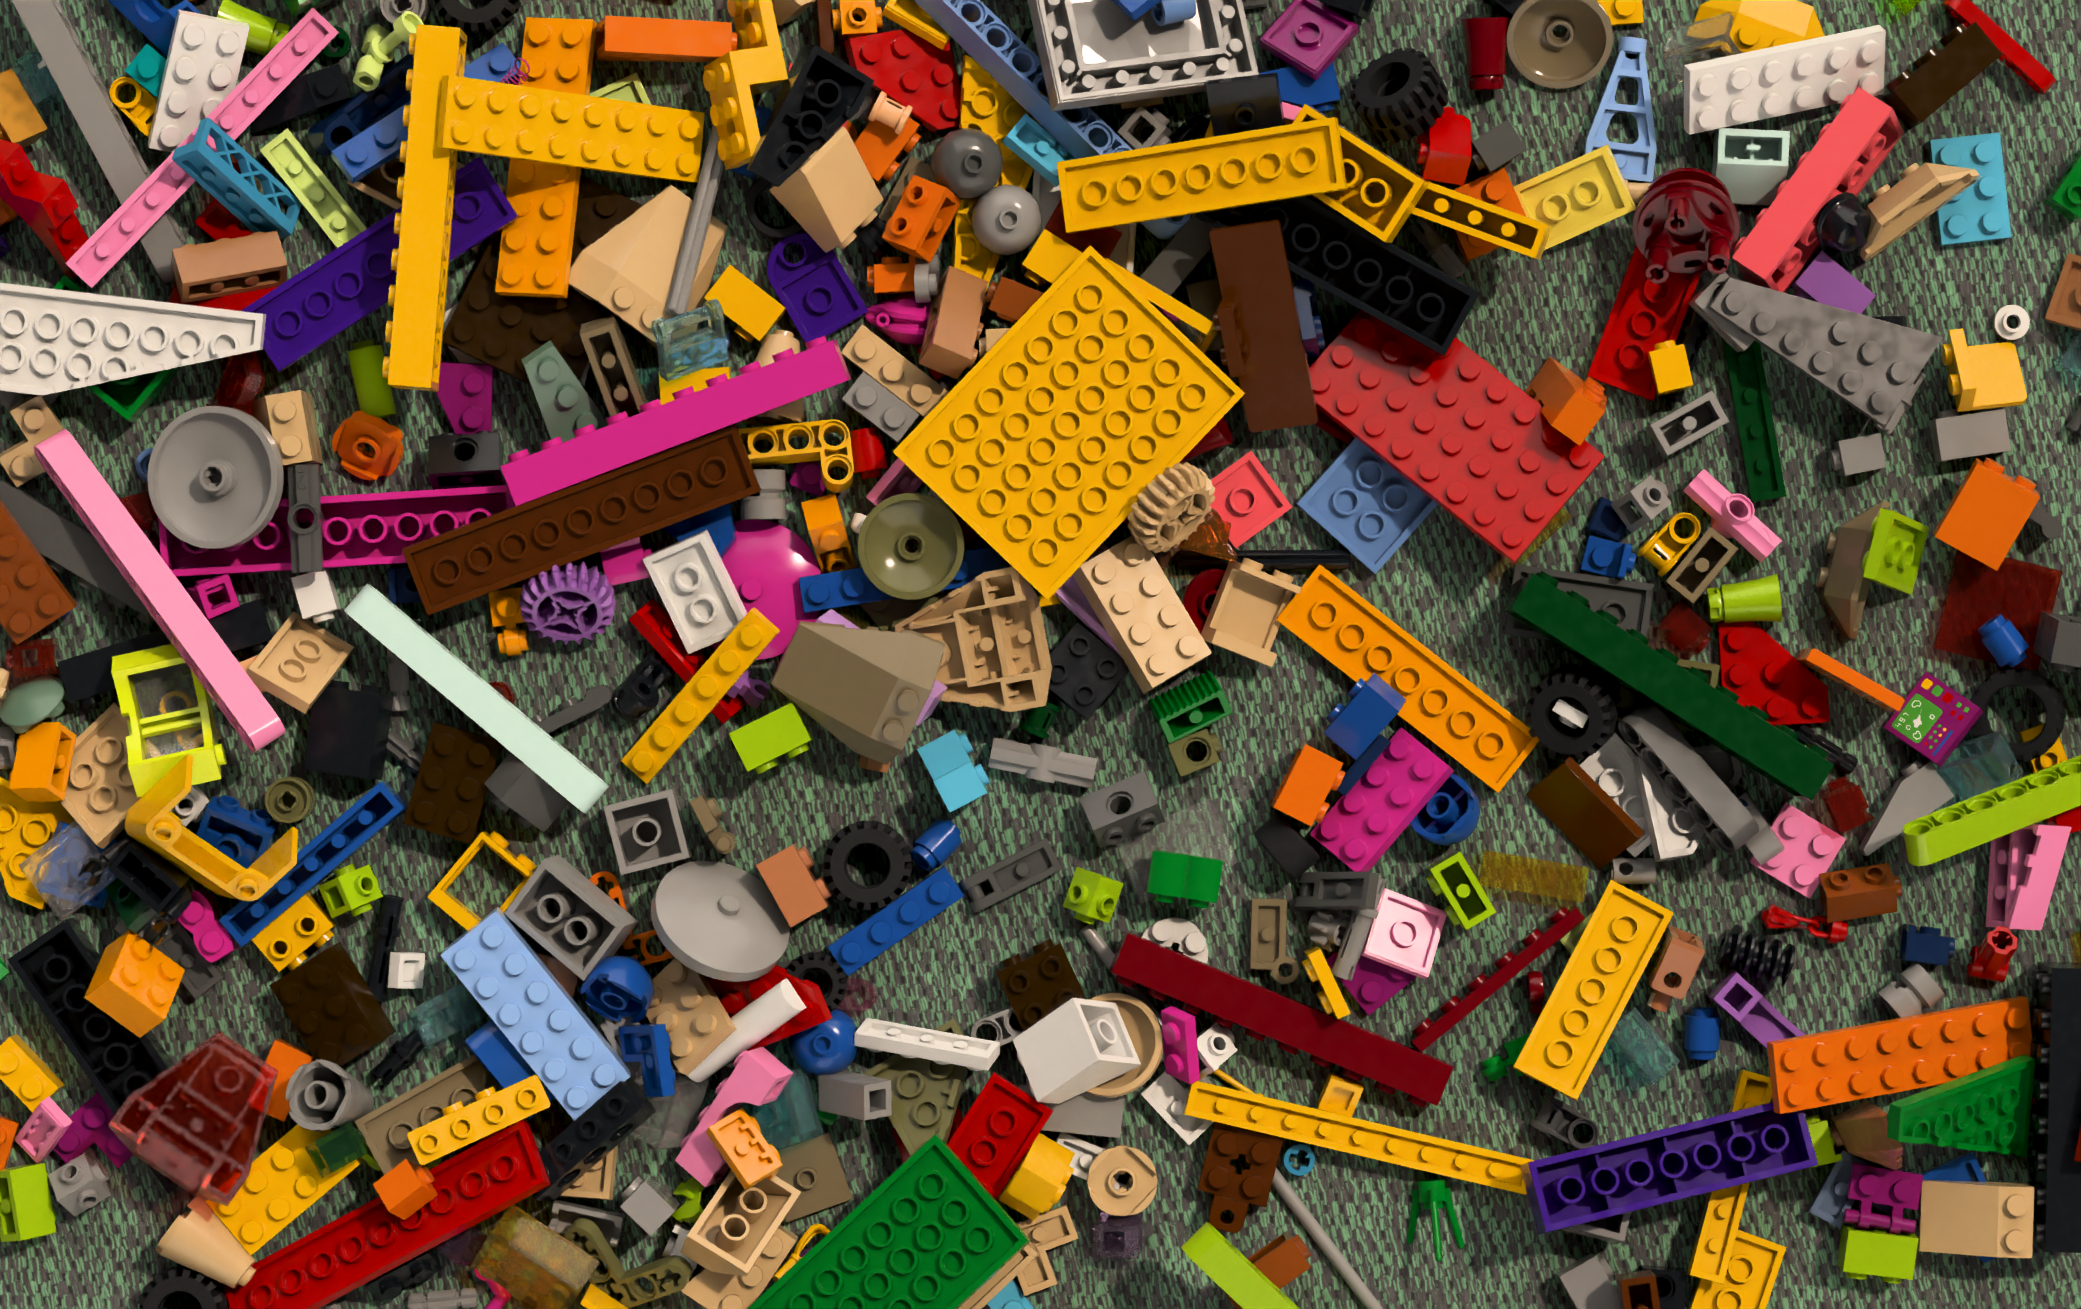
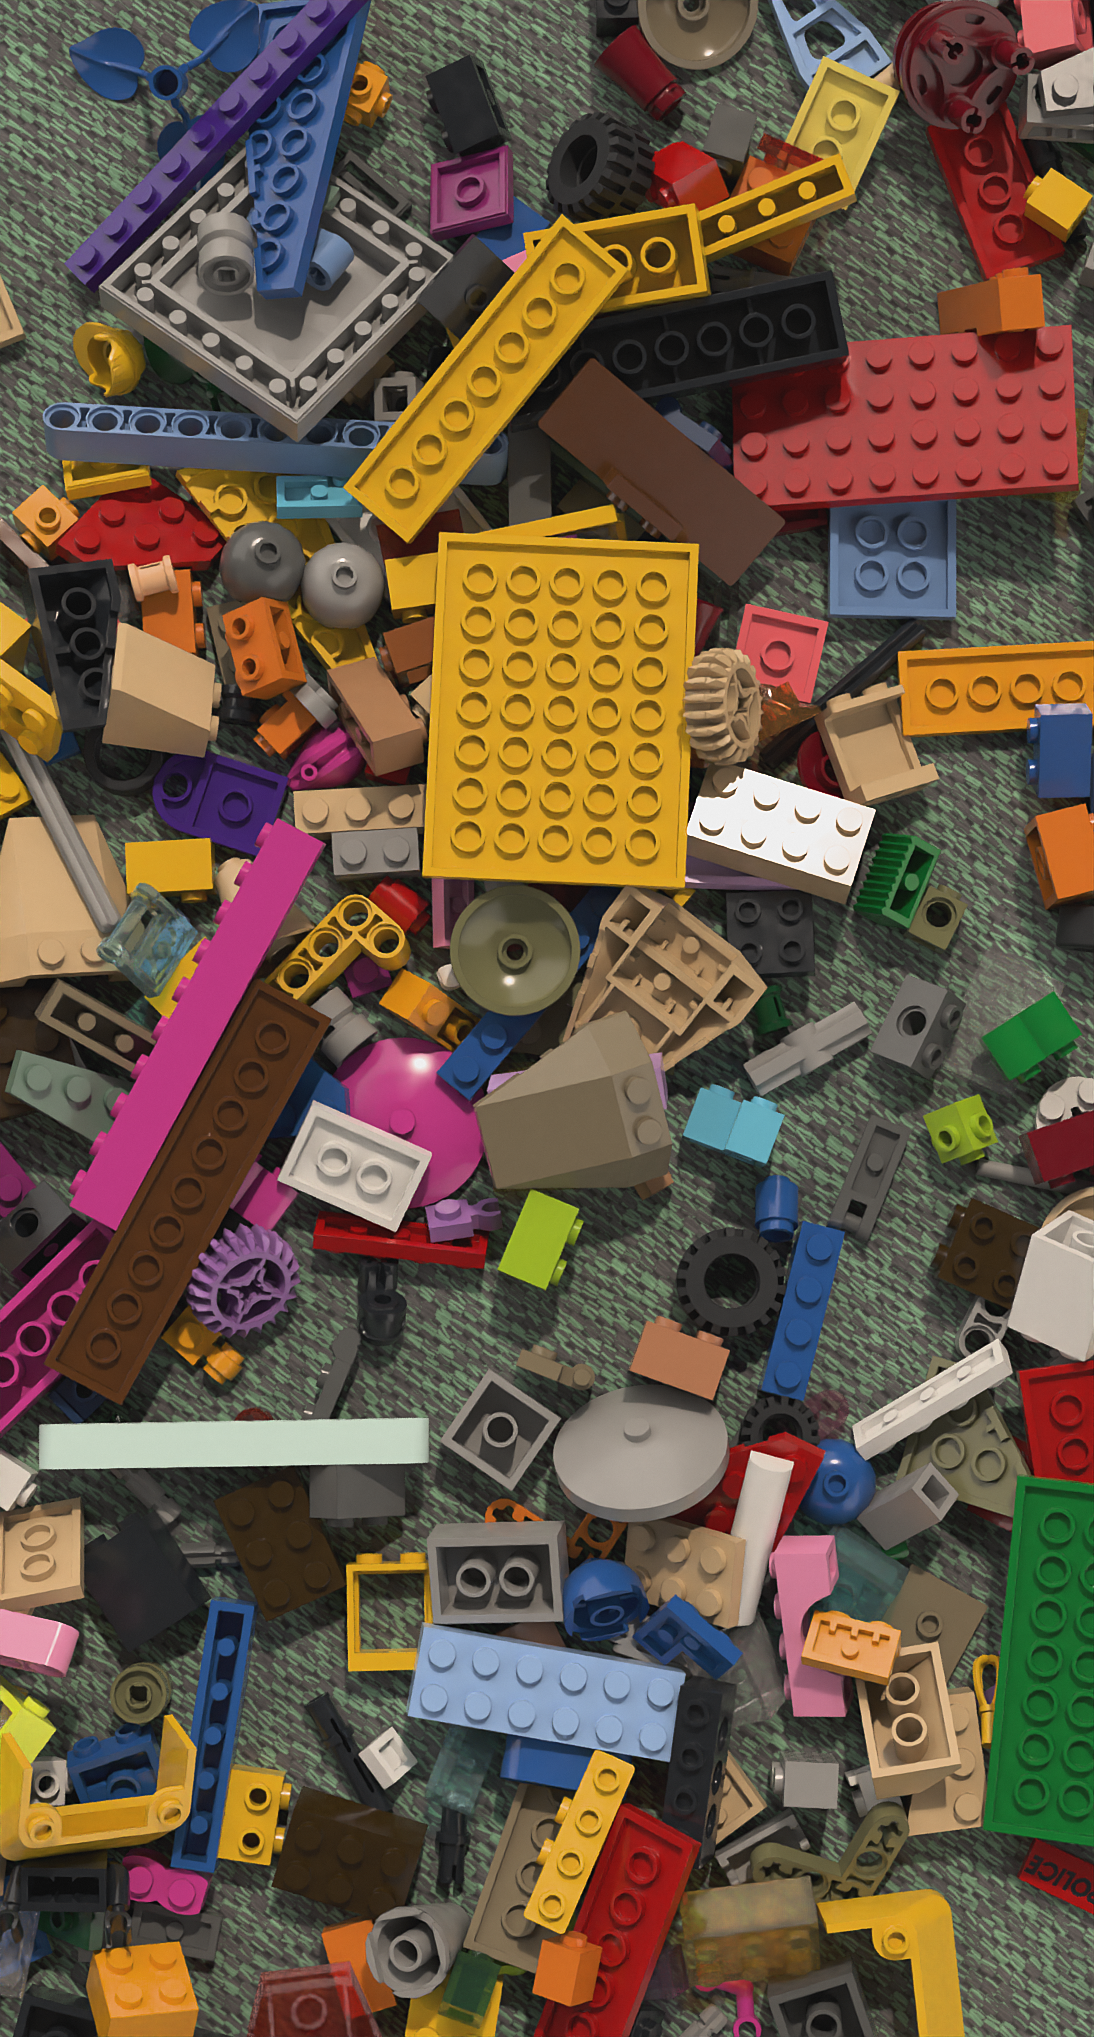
camera: 40 degrees left, 5 degrees down
(350, 891) = (271, 1728): lime brick -> none
(691, 1209) = (850, 1749): lime piece -> none
(700, 695) = (440, 1259): yellow plate -> none
(1527, 184) = (782, 153): none -> clear red plate

